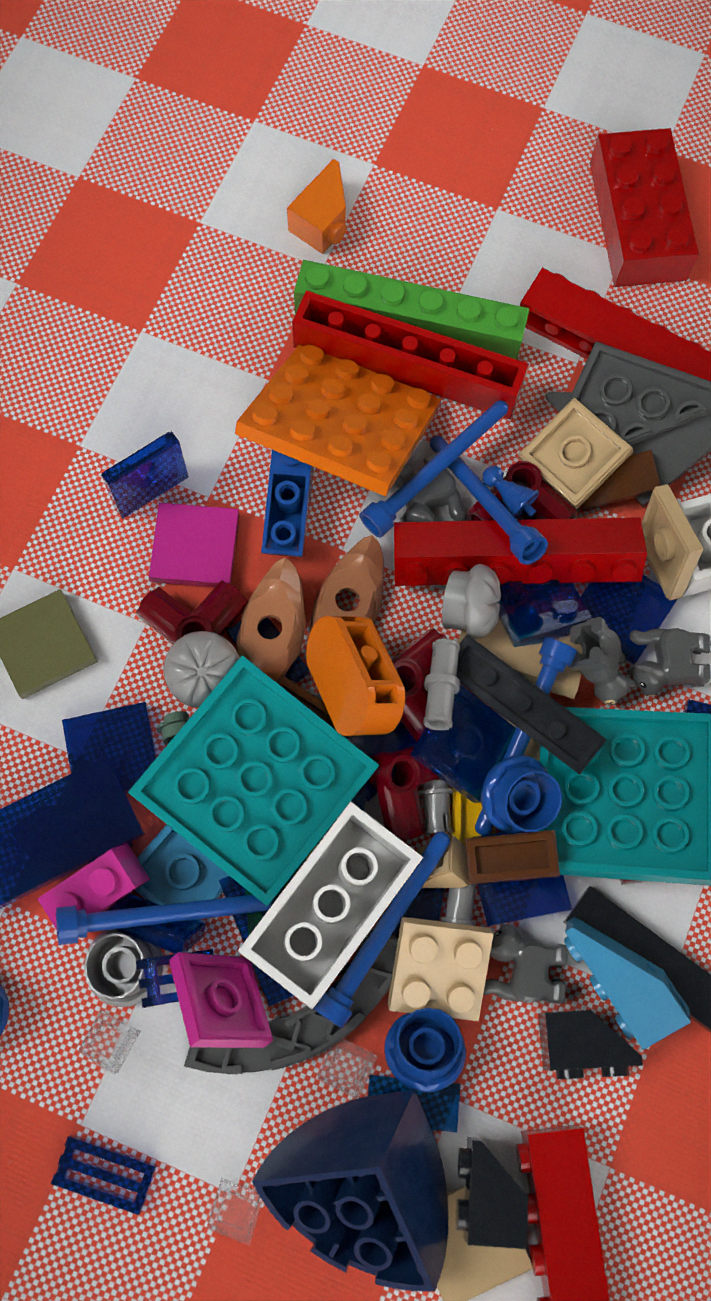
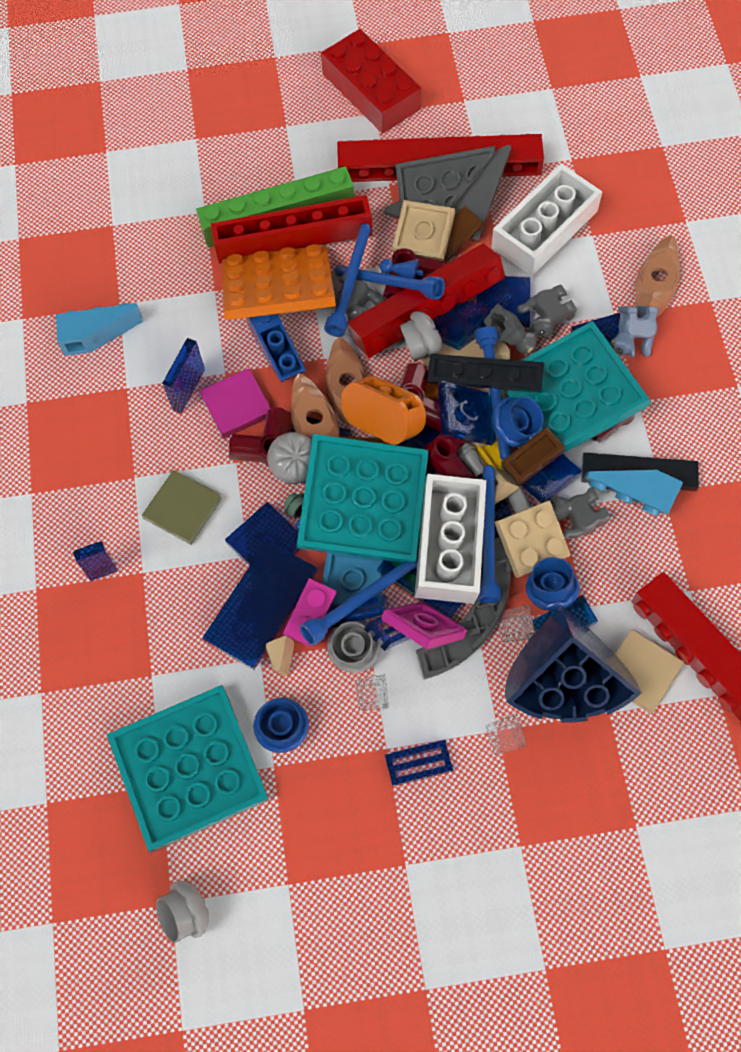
camera: 25 degrees left, 5 degrees down
(23, 921) = (280, 654): none -> tan slope
(84, 346) = (90, 329): none -> dark azure slope
(320, 210) = (184, 179): orange slope -> none
(442, 684) = (435, 385): light grey pin -> none
(493, 1202) = (640, 635): black slope -> none
(581, 1042) = (633, 532): black slope -> none
(670, 542) = (510, 244): tan tile -> none

